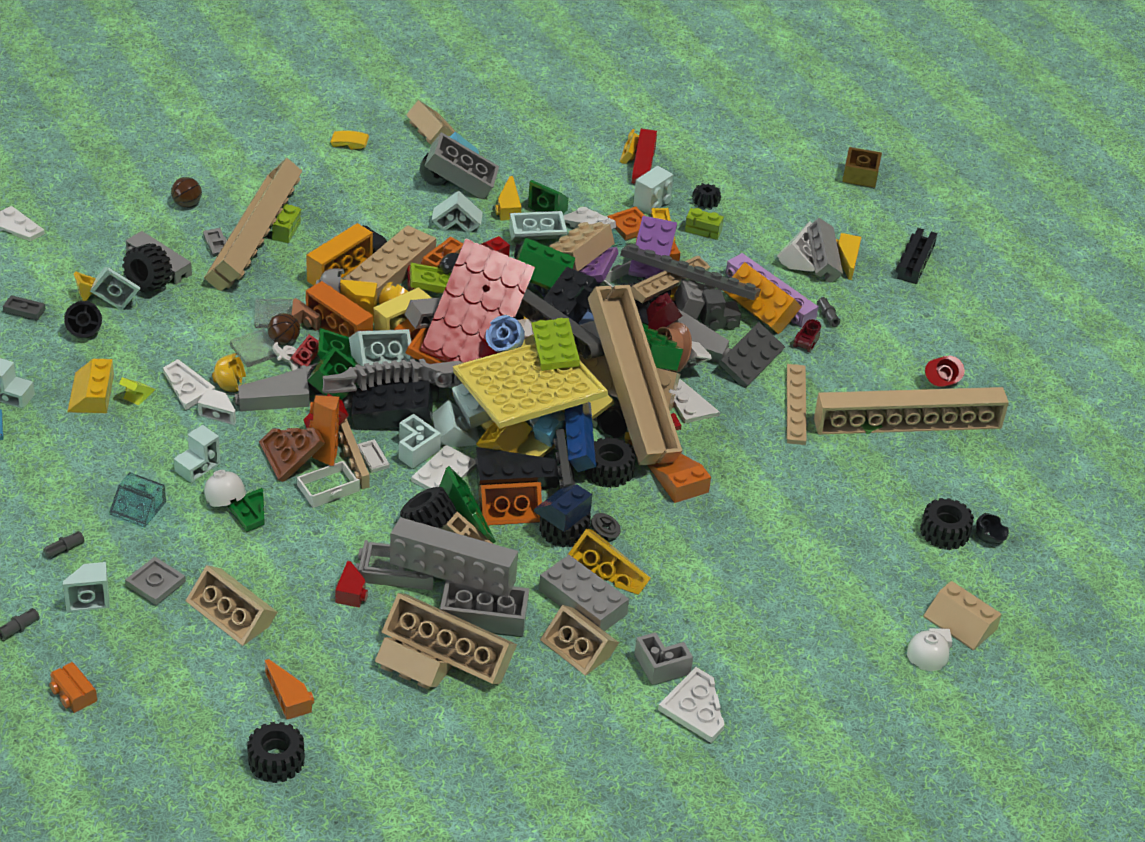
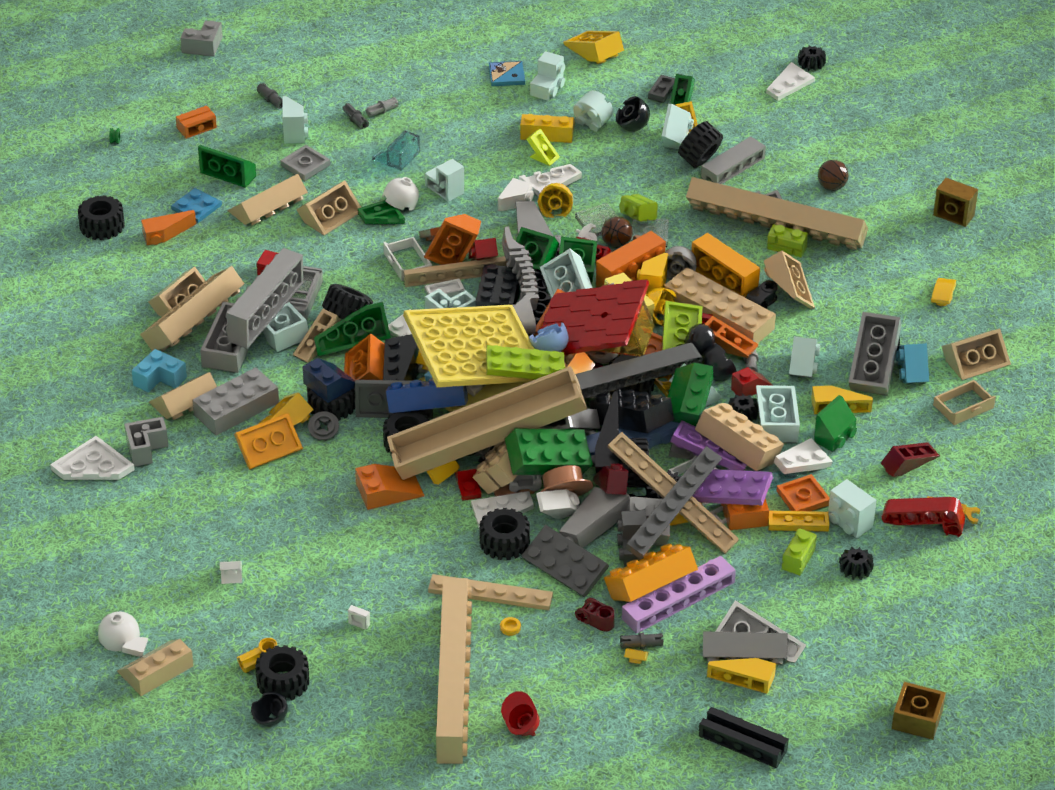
camera: 100 degrees right, 0 degrees up
(34, 289) = (682, 89): none -> green slope
(46, 522) = (382, 107): none -> light grey axle
(74, 349) = (592, 110): none -> light aqua brick
(98, 766) = (114, 135): none -> green bush
(171, 643) = (226, 166): none -> green slope
(231, 120) = (955, 202): none -> pearl gold brick
(236, 672) = (199, 202): none -> dark azure plate
(243, 551) = (330, 208): none -> tan slope
(244, 314) = (638, 207): none -> lime brick
(346, 215) = (789, 276): none -> tan slope
(506, 128) = (967, 413): none -> tan container
(545, 666) = (158, 368): none -> medium azure brick
(577, 166) = (908, 457): none -> dark red slope
(642, 561) = (268, 441): none -> light orange tile
(730, 391) = (504, 533): none -> black tyre
(822, 574) = (231, 572): none -> white slope
(833, 387) = (510, 626): none -> yellow tile
(847, 313) = (636, 656): none -> yellow plate
(859, 481) = (358, 617): none -> white tile
(922, 540) = (248, 660): none -> yellow piece

